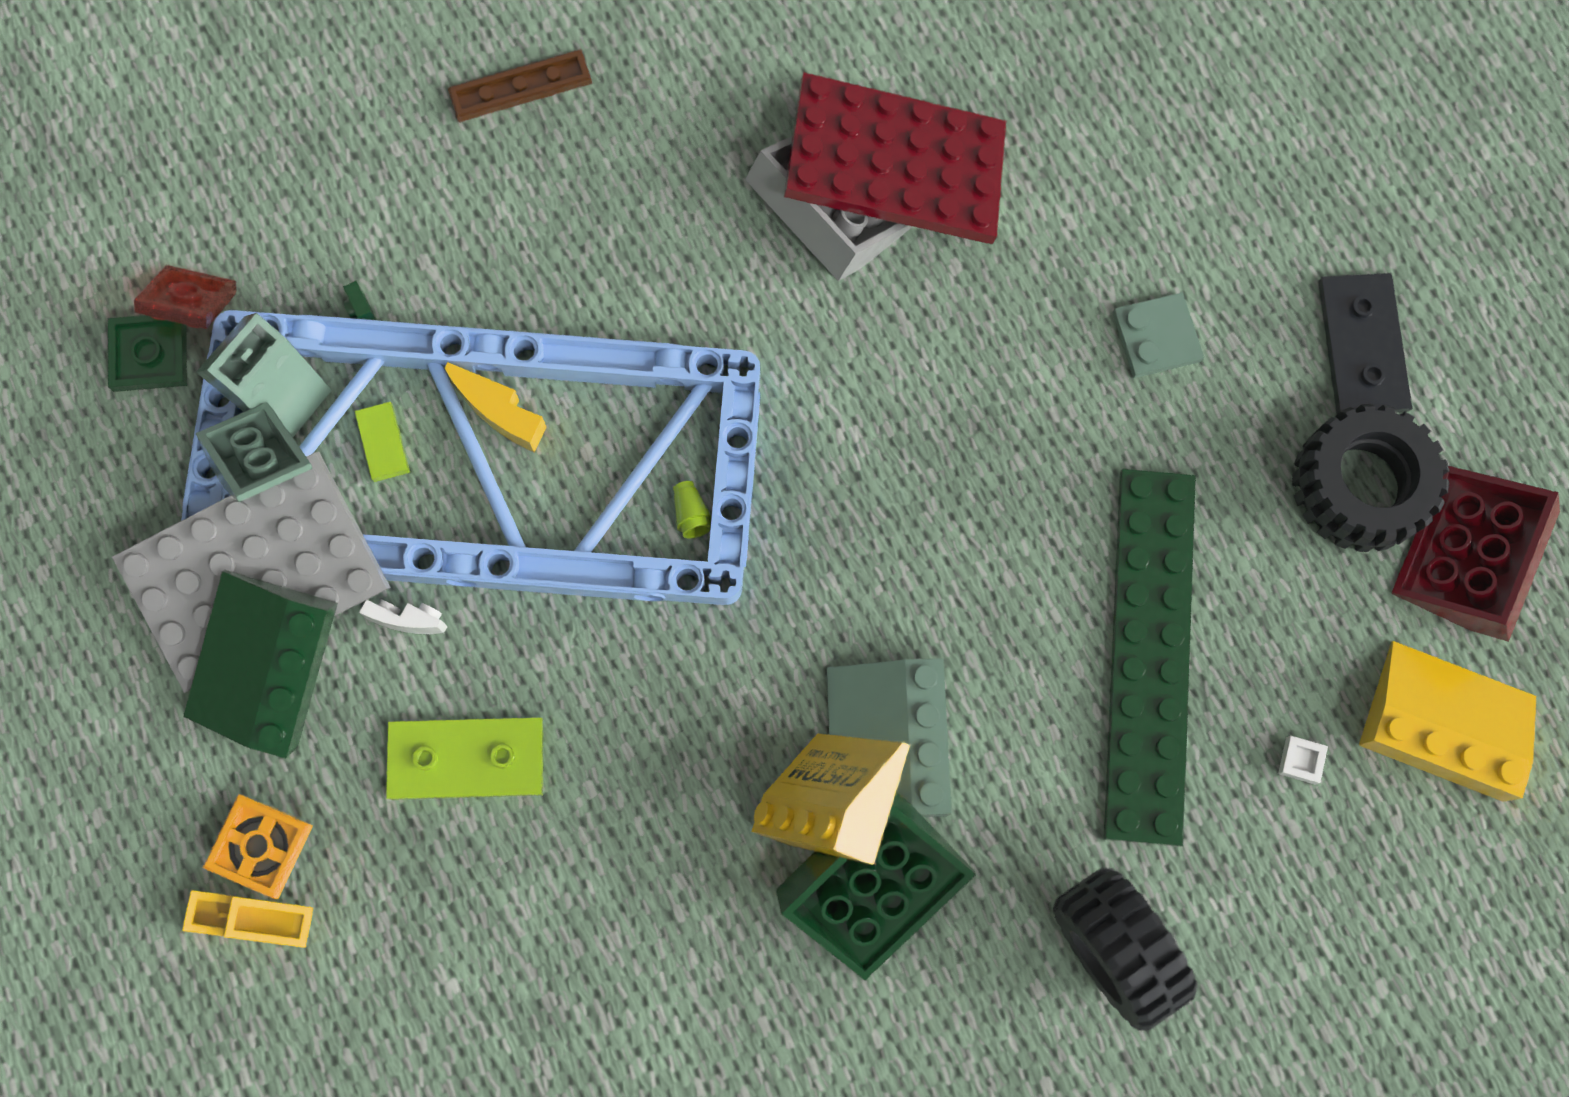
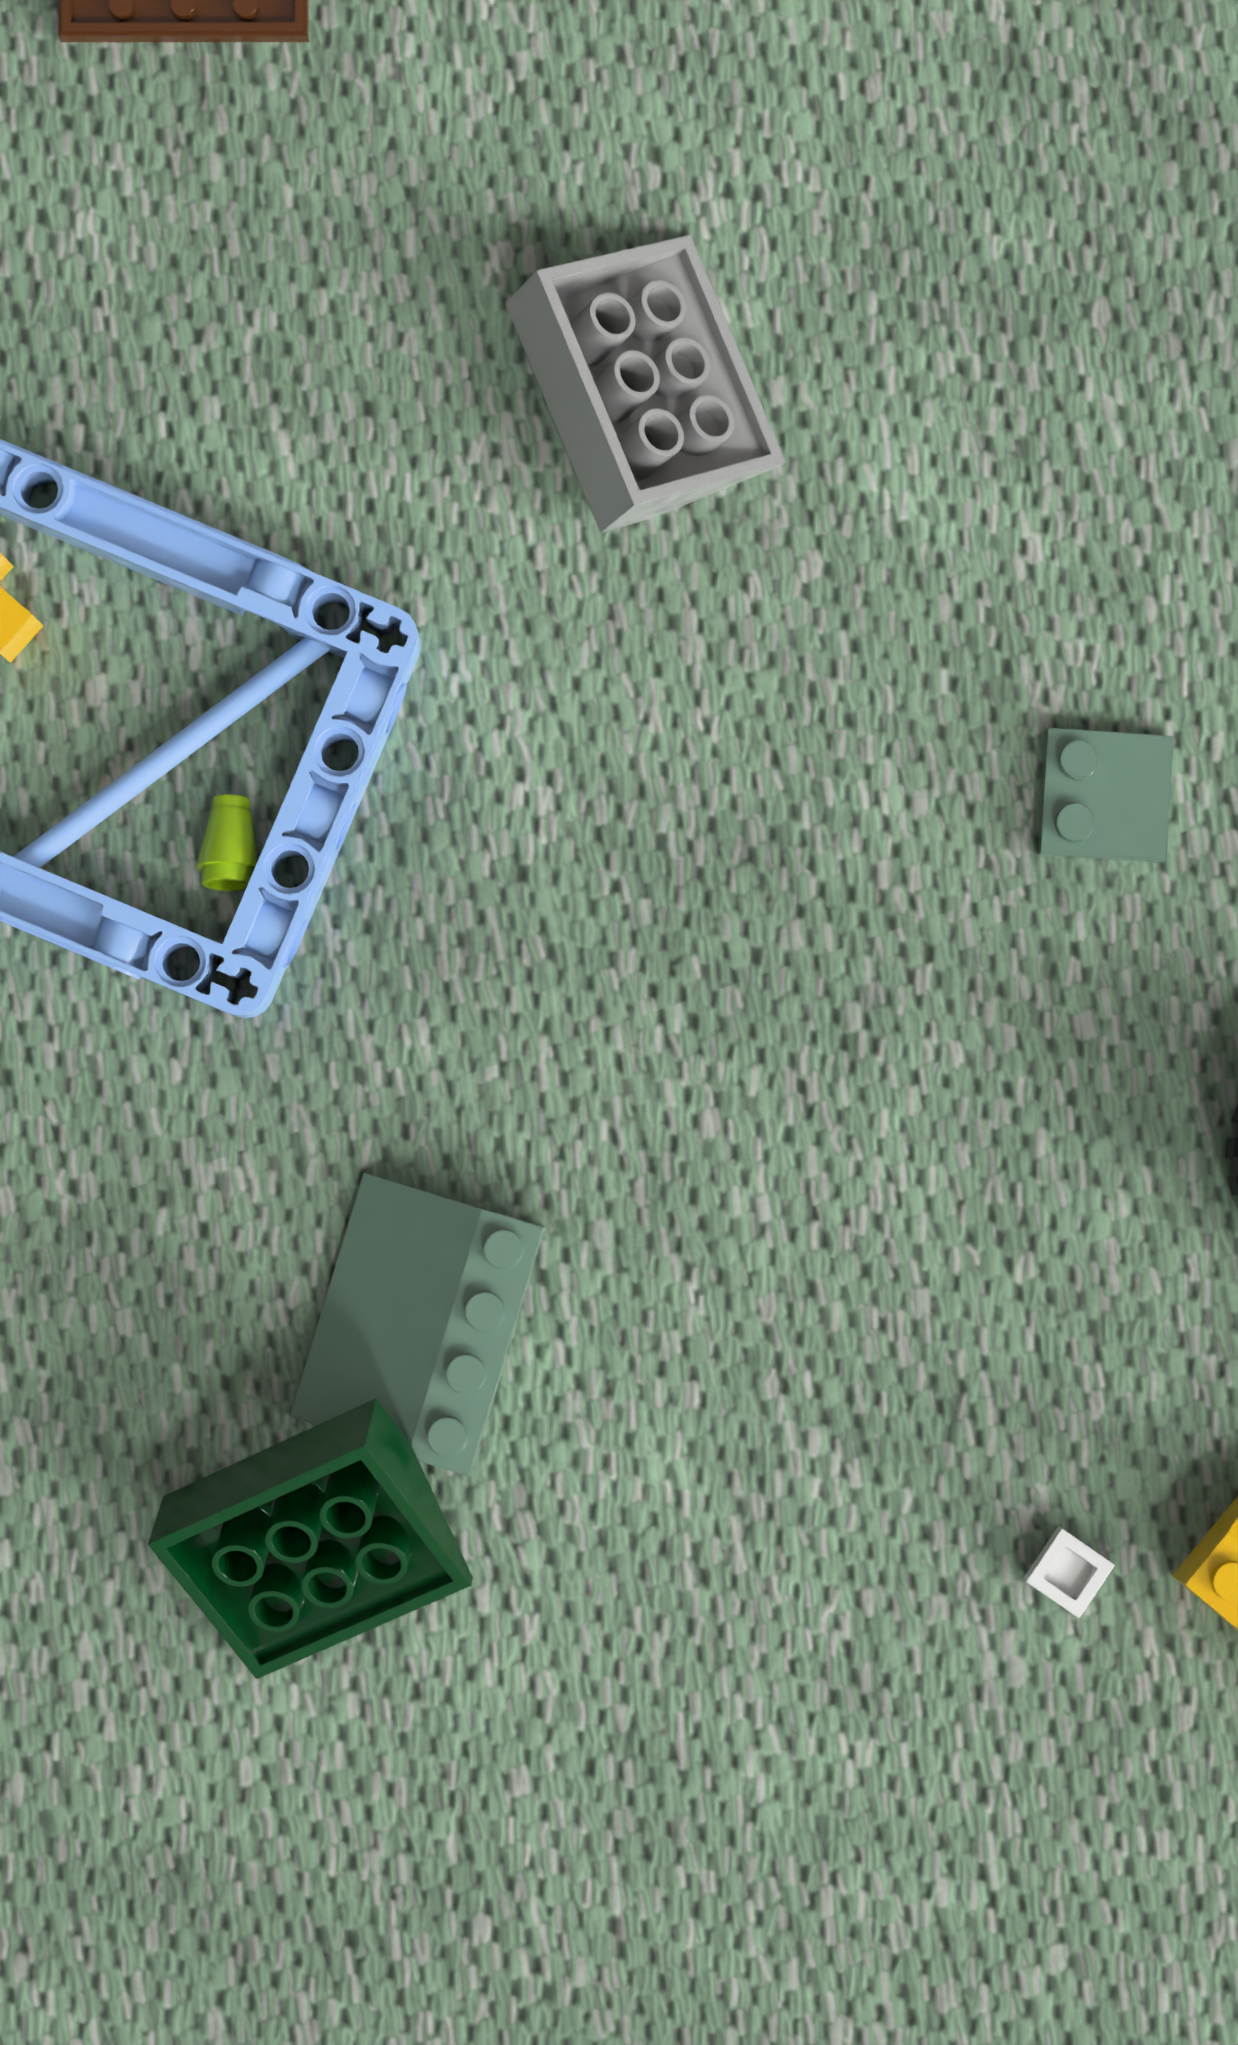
camera: 20 degrees right, 10 degrees up
(834, 797) = (283, 1396): yellow slope -> none
(896, 159) = (768, 351): dark red plate -> none
(1125, 948) = (653, 1778): black tyre -> none
(1150, 659) = (890, 1323): dark green plate -> none

